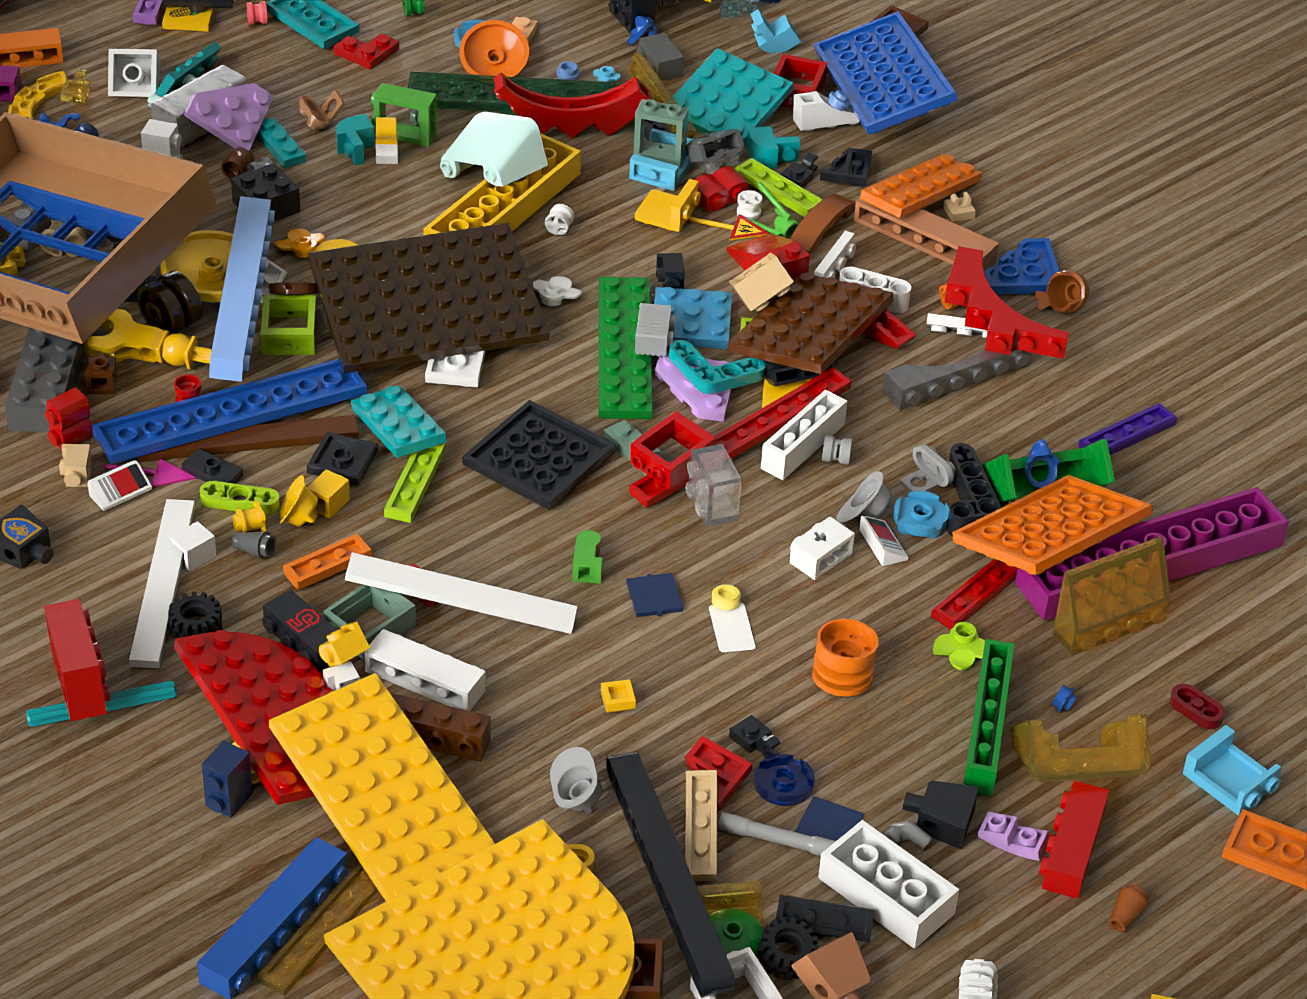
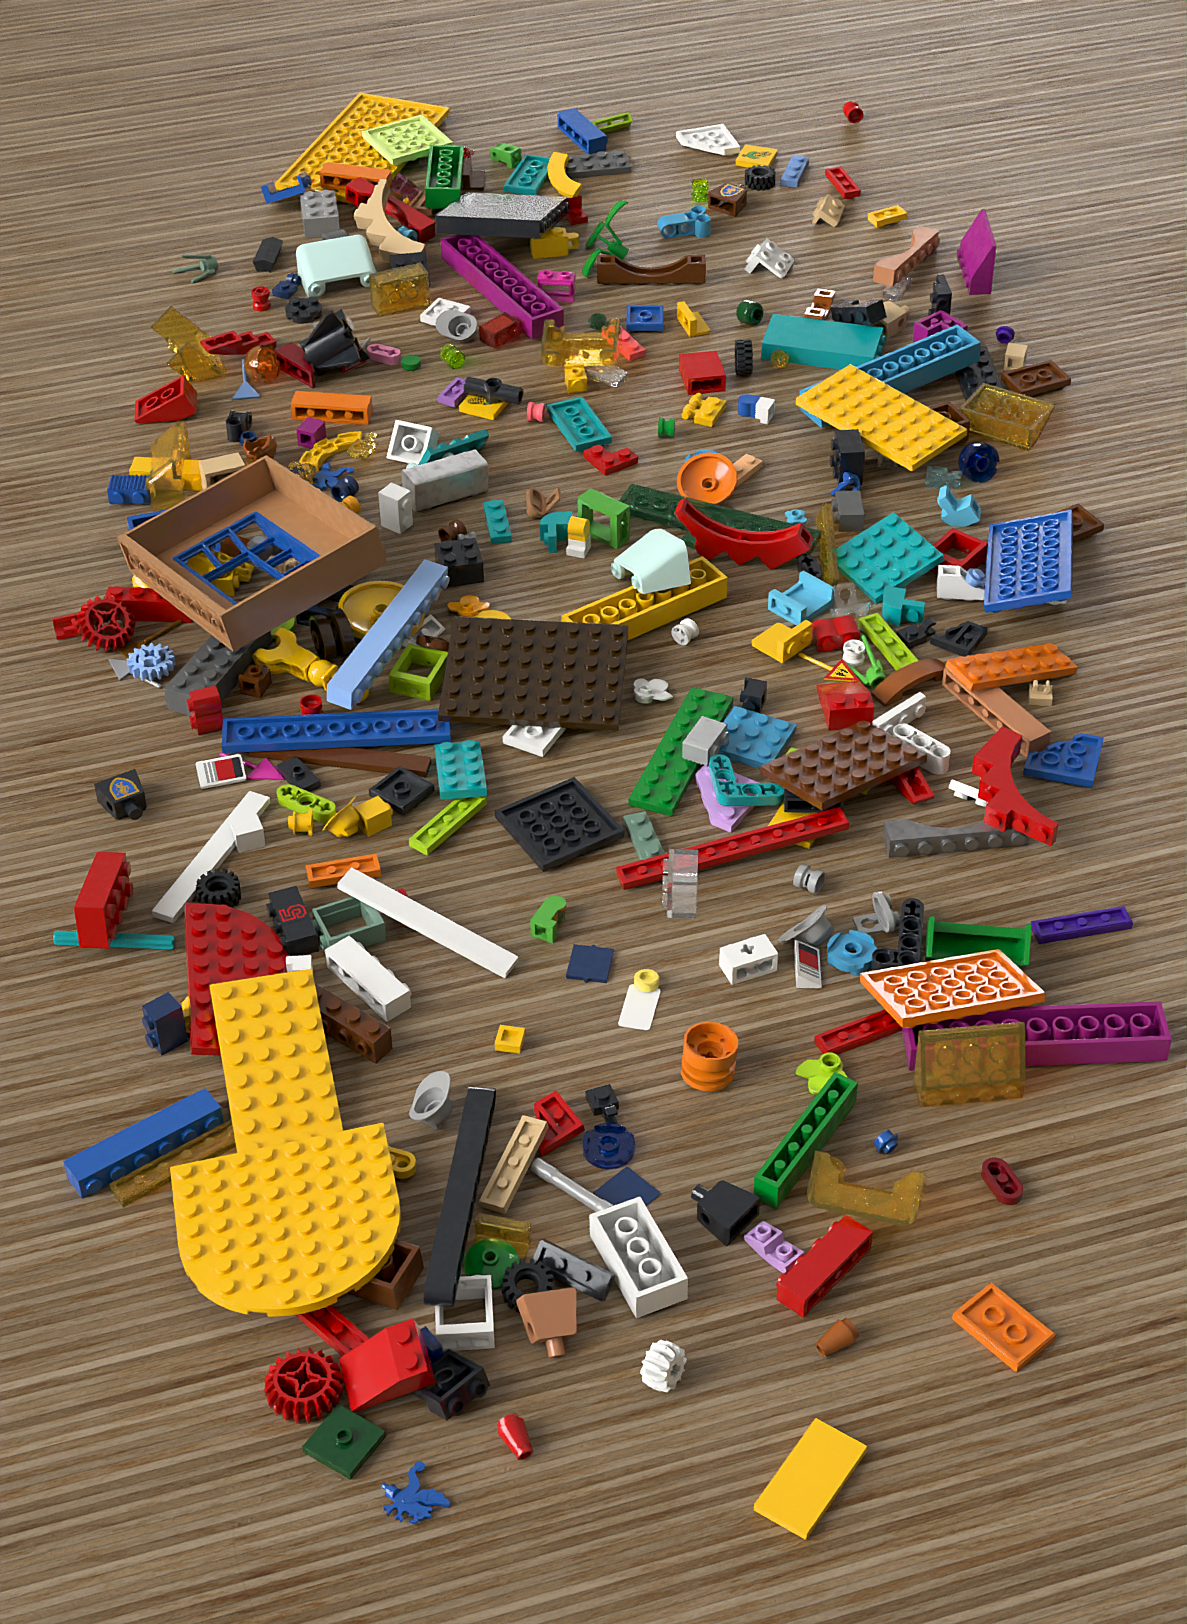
camera: 25 degrees right, 0 degrees up
(76, 464) = (196, 747): tan brick -> none
(231, 112) = (463, 490): lavender plate -> none
(255, 543) = (298, 844): dark grey cone -> none
(343, 644) = (308, 940): yellow brick -> none
(568, 71) = (764, 508): medium blue plate -> none
(673, 115) = (806, 595): sand green window -> none
(681, 430) = (654, 831): red window -> none
(714, 146) = (839, 597): dark grey brick -> none
(761, 282) = (819, 719): tan brick -> none
(803, 434) = (783, 858): white brick -> none
(907, 830) = (683, 1217): light grey arm -> none
(1039, 452) = (979, 923): blue piece -> none
(1065, 292) = (1089, 788): dark orange hat -> none
(1229, 772) = (998, 1246): medium azure panel -> none

